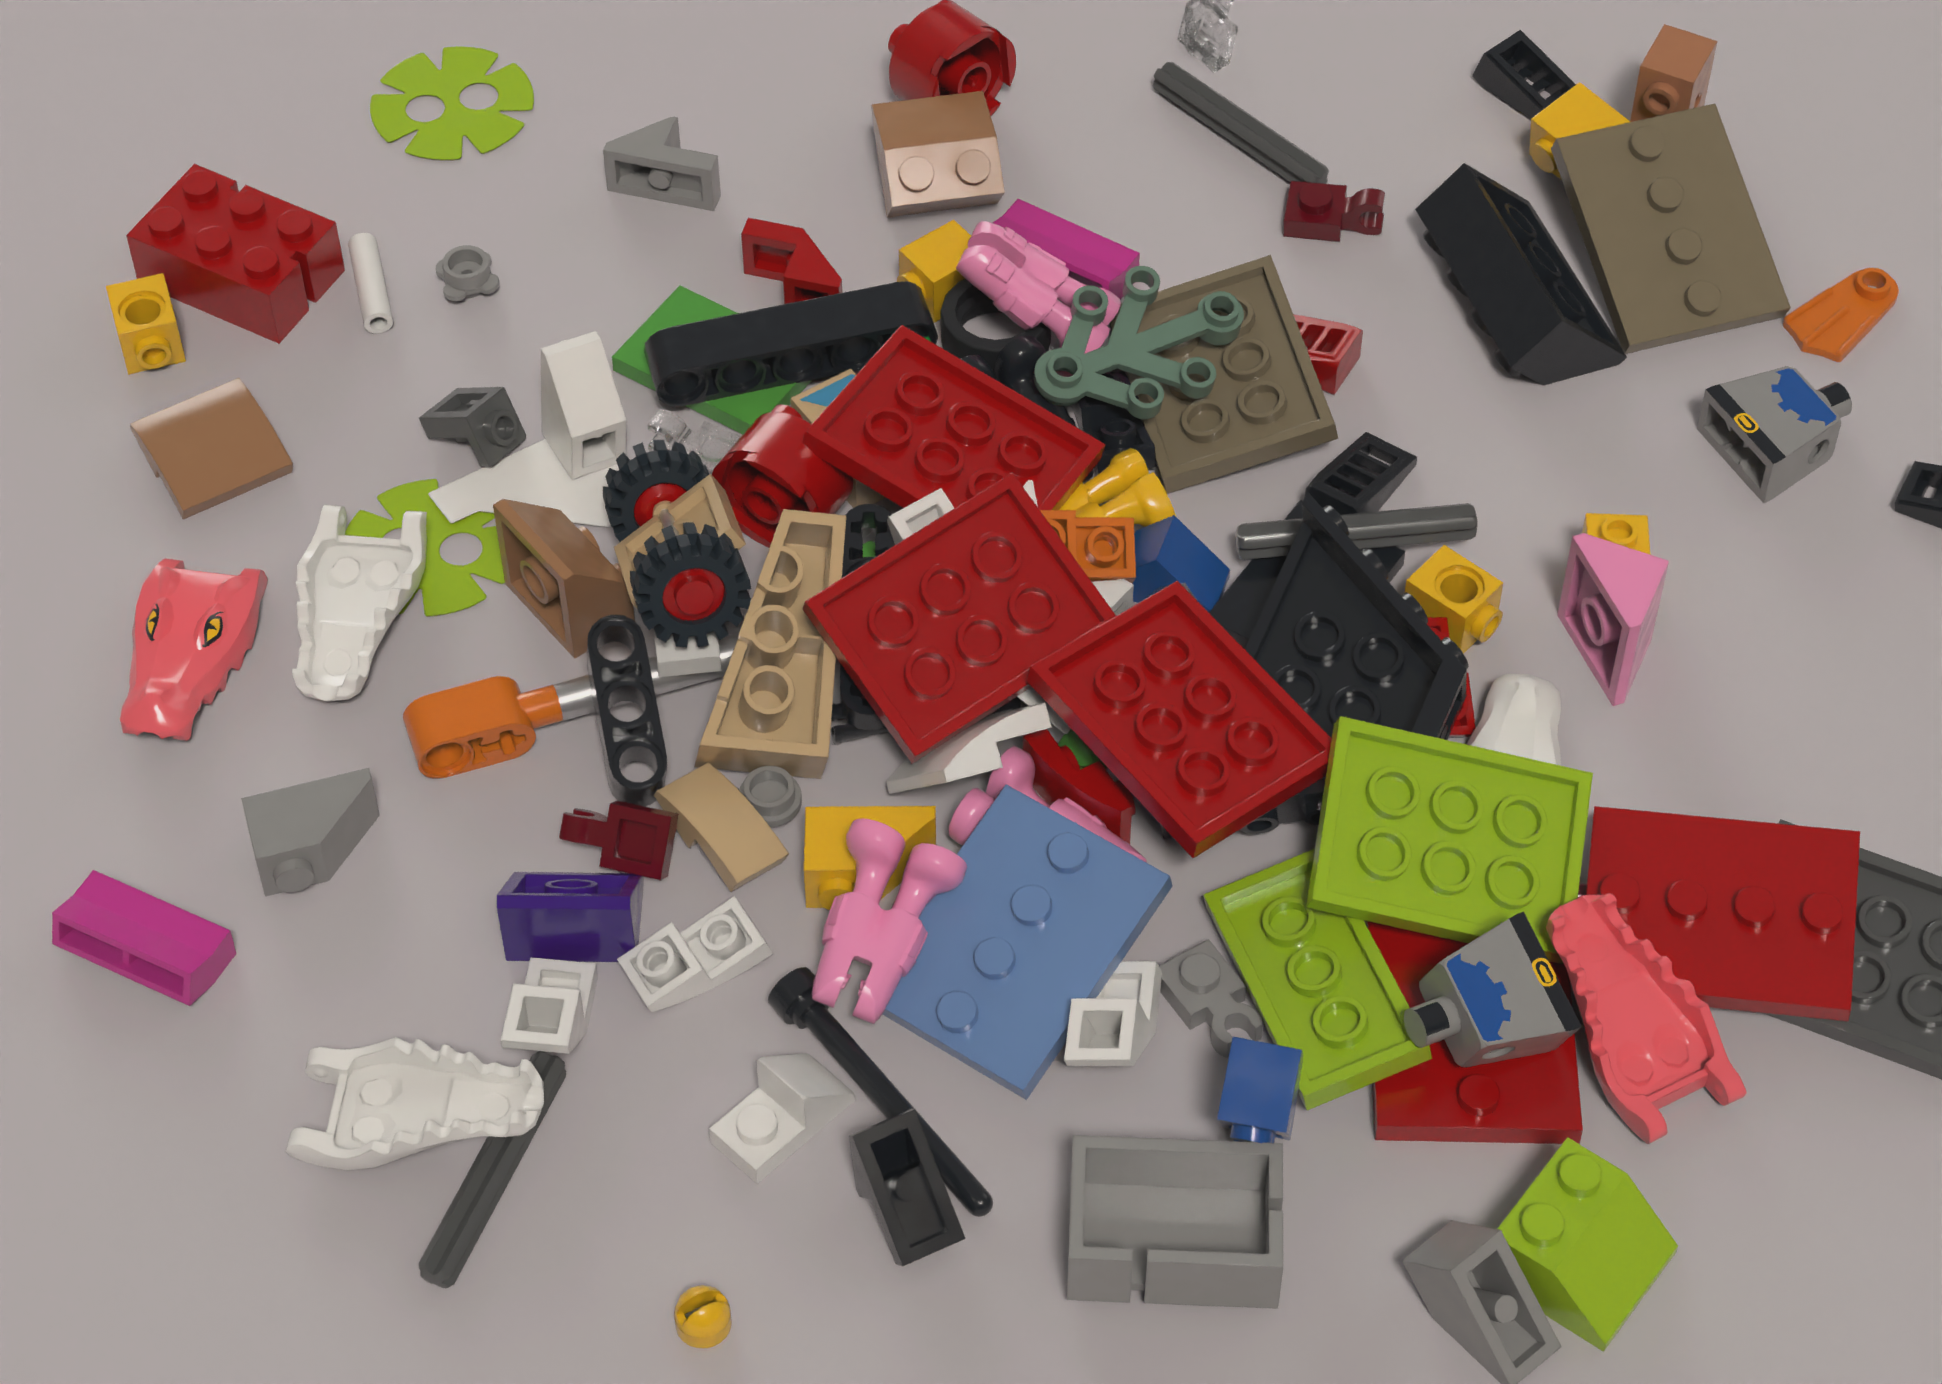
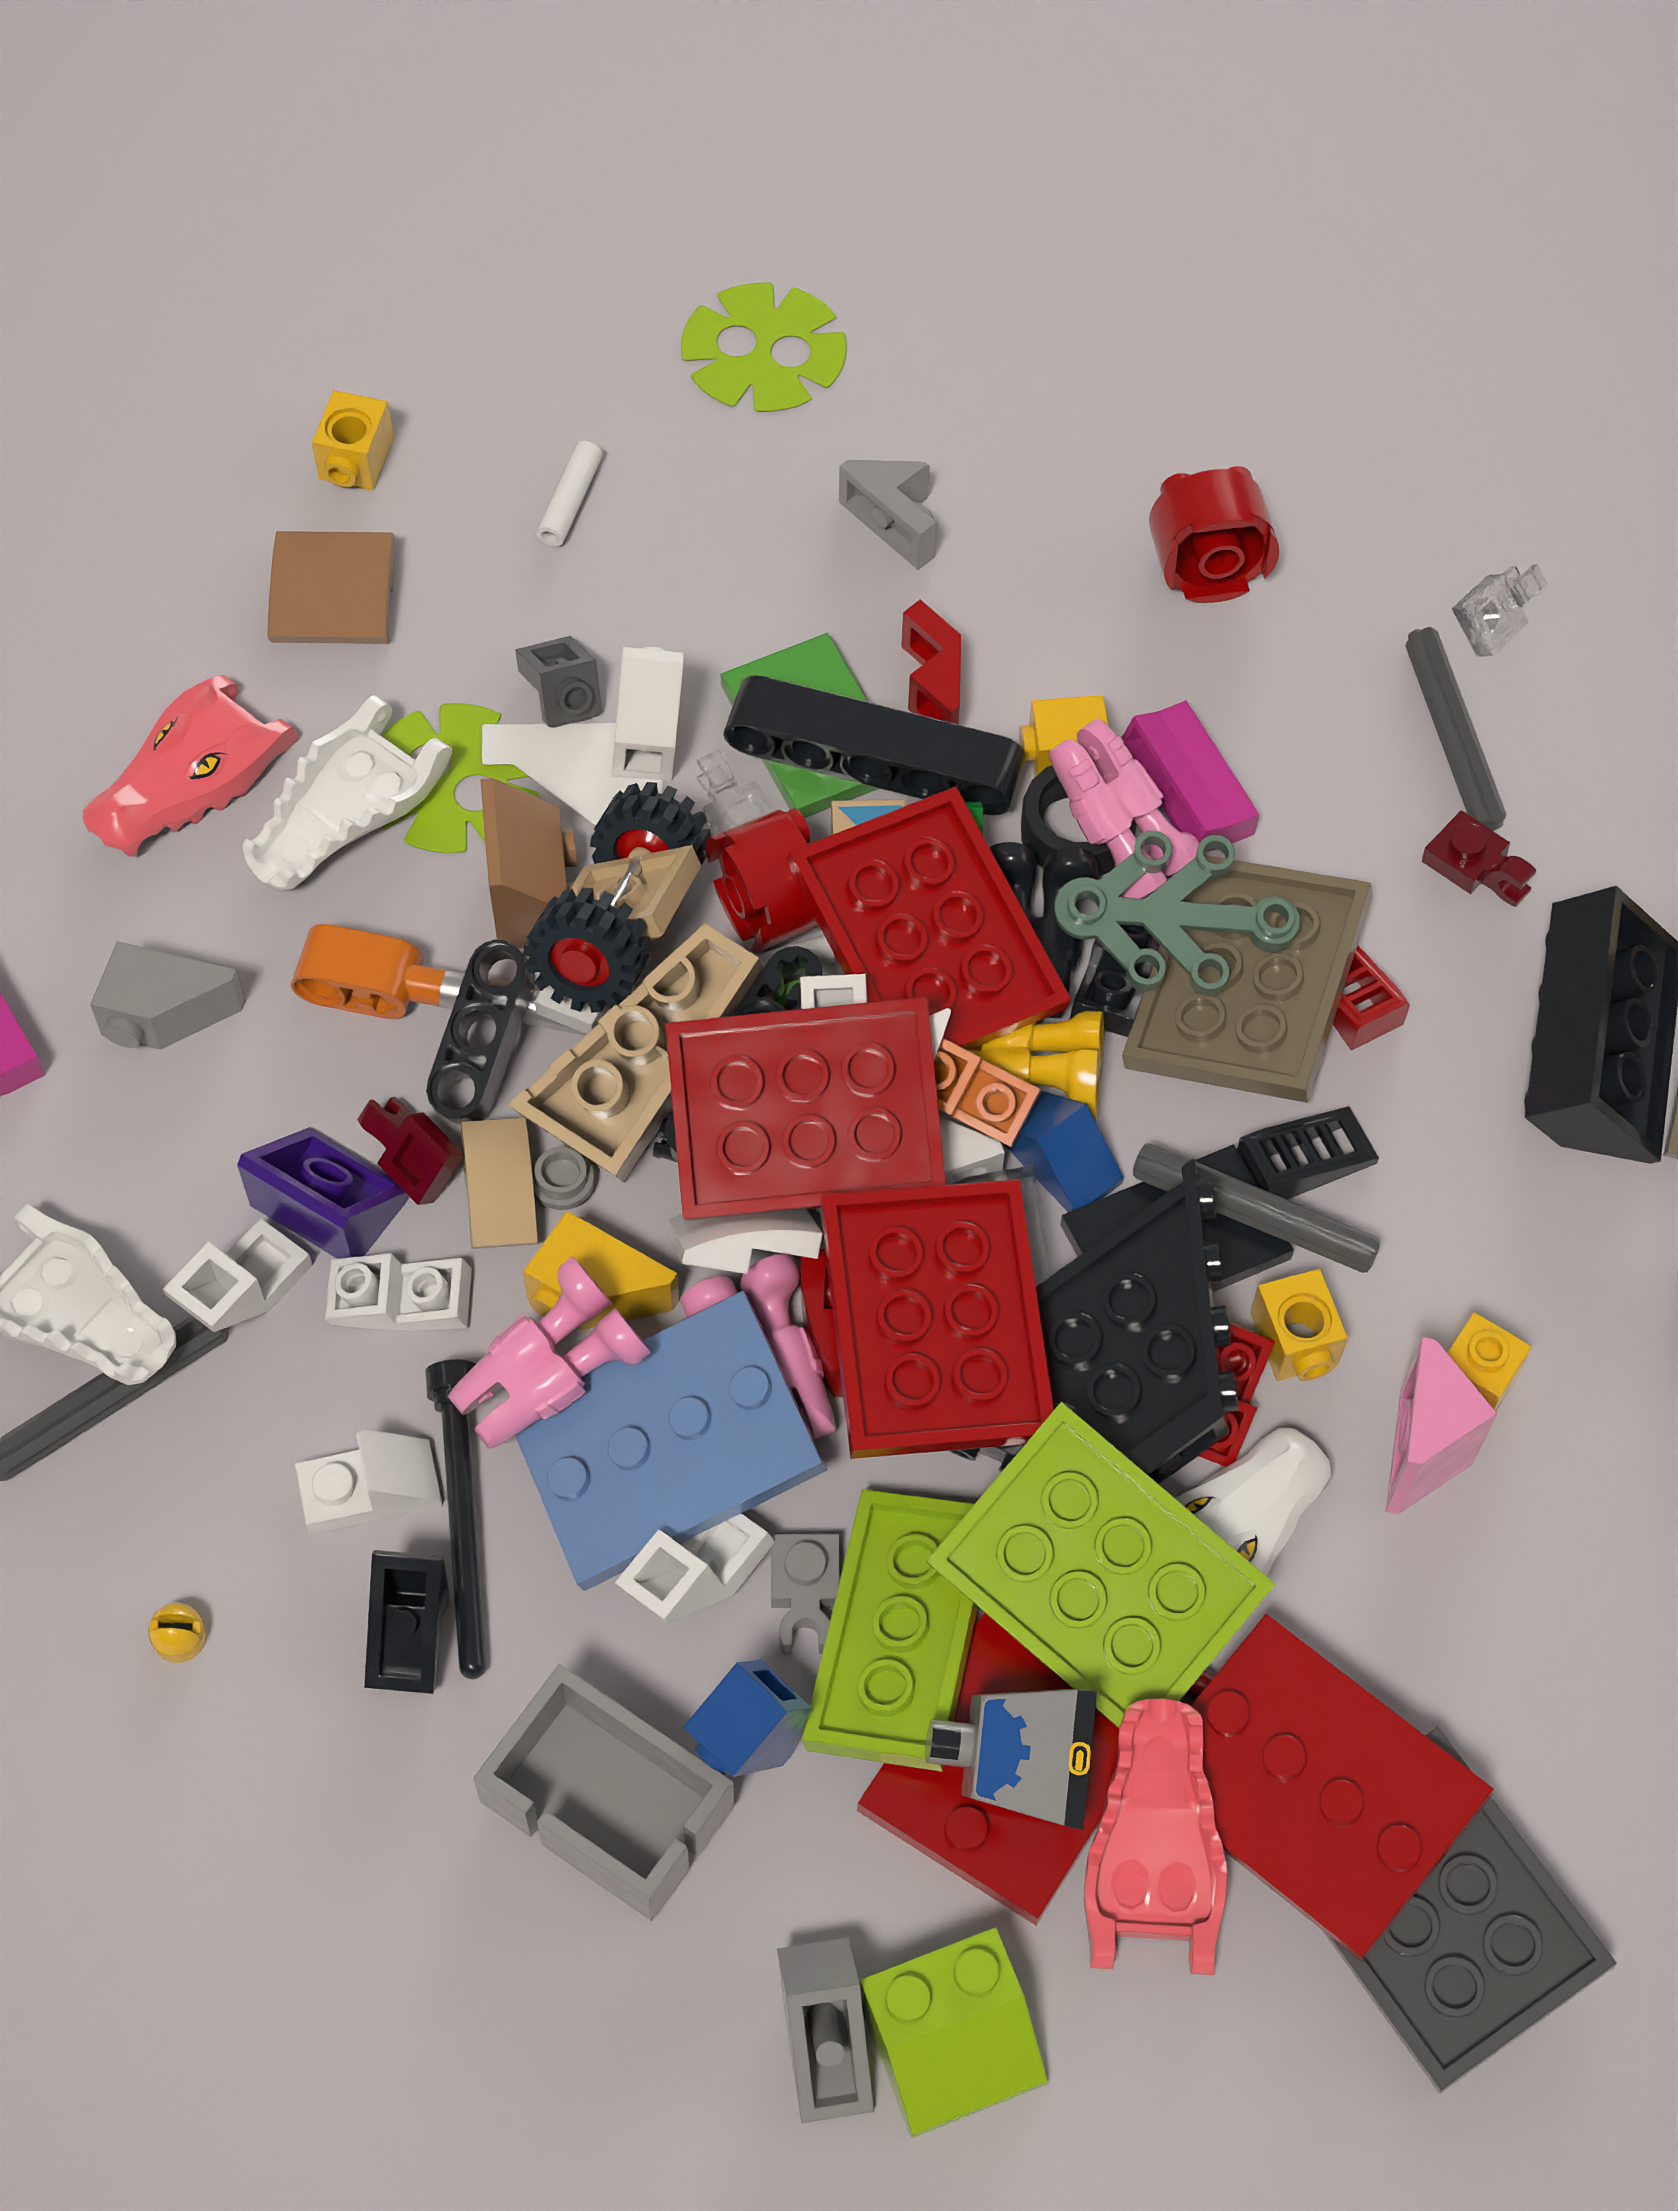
camera: 30 degrees right, 10 degrees up
(237, 252) = (464, 403): red piece -> none
(466, 273) = (651, 514): light grey plate -> none
(937, 154) = (1137, 616): medium nougat slope -> none

